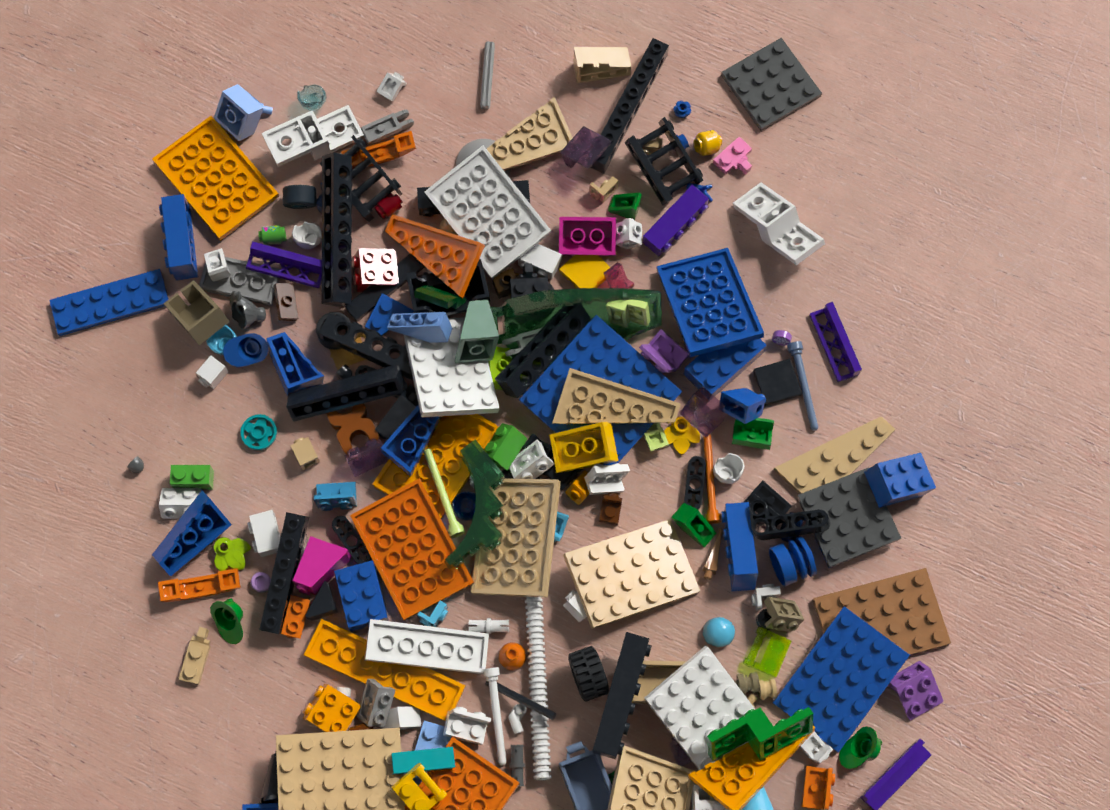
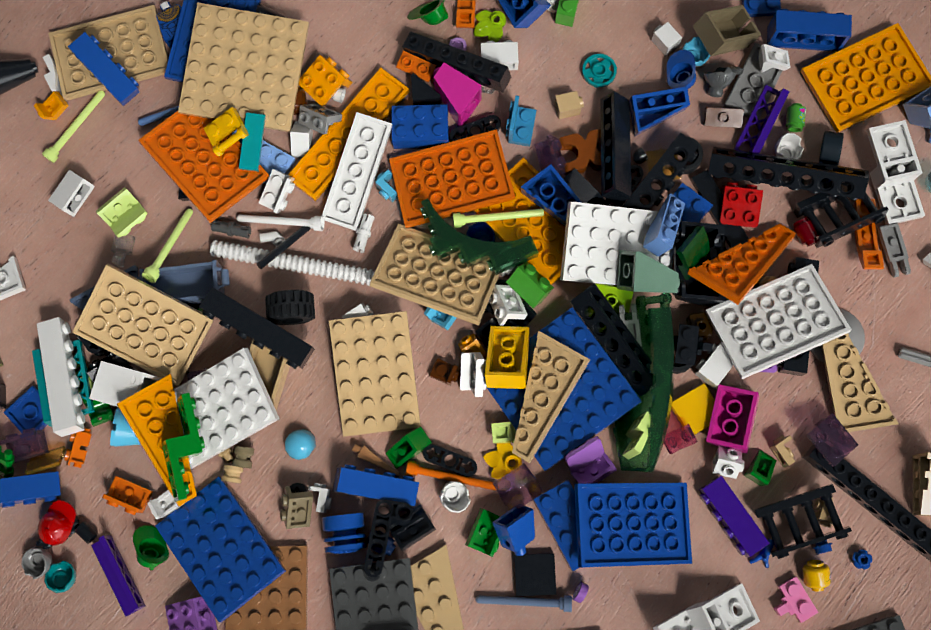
camera: 110 degrees right, 5 degrees up
(512, 656) = (331, 248): orange brick -> none
(773, 655) = (262, 489): clear neon green plate -> none

